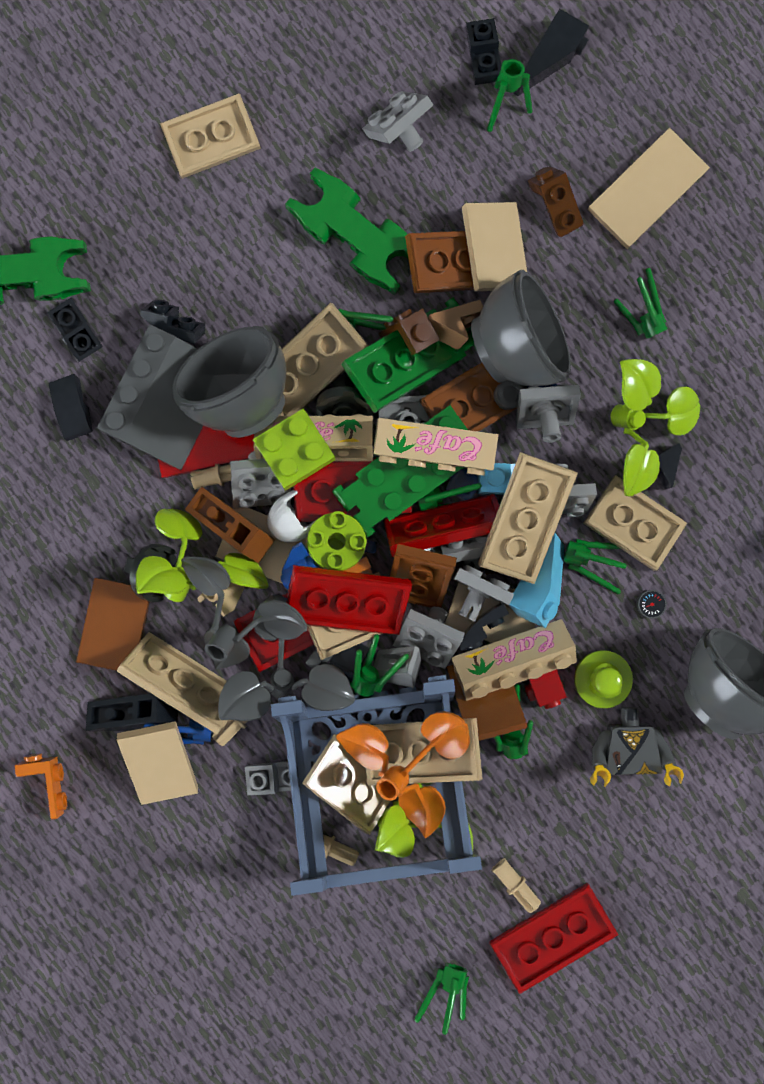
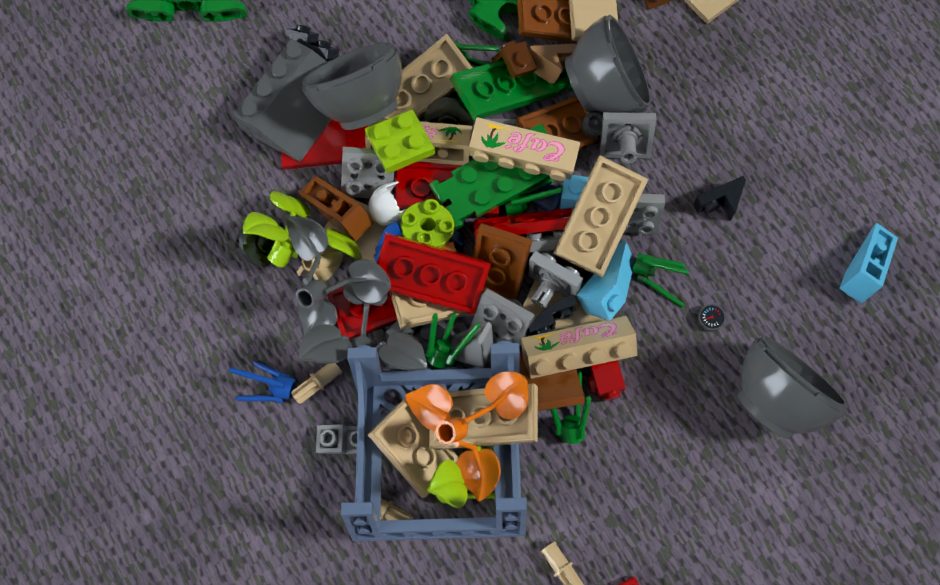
camera: 15 degrees right, 15 degrees down
(54, 773) = (140, 412): orange bracket -> none
(69, 408) = (213, 102): black slope -> none
(75, 329) = (228, 43): black slope -> none
(111, 624) = (218, 289): dark orange tile -> none
(128, 713) = (215, 362): black slope -> none
(157, 763) = (237, 409): tan tile -> none
(176, 680) = (267, 337): tan tile -> none
(211, 476) = (325, 170): tan axle -> none
(603, 679) = (662, 380): lime plate -> none
(632, 750) = (685, 447): dark grey torso -> none
(635, 524) = (700, 245): tan tile -> none
(639, 384) = (708, 112): lime plant -> none
(652, 322) = (725, 80): green plant -> none

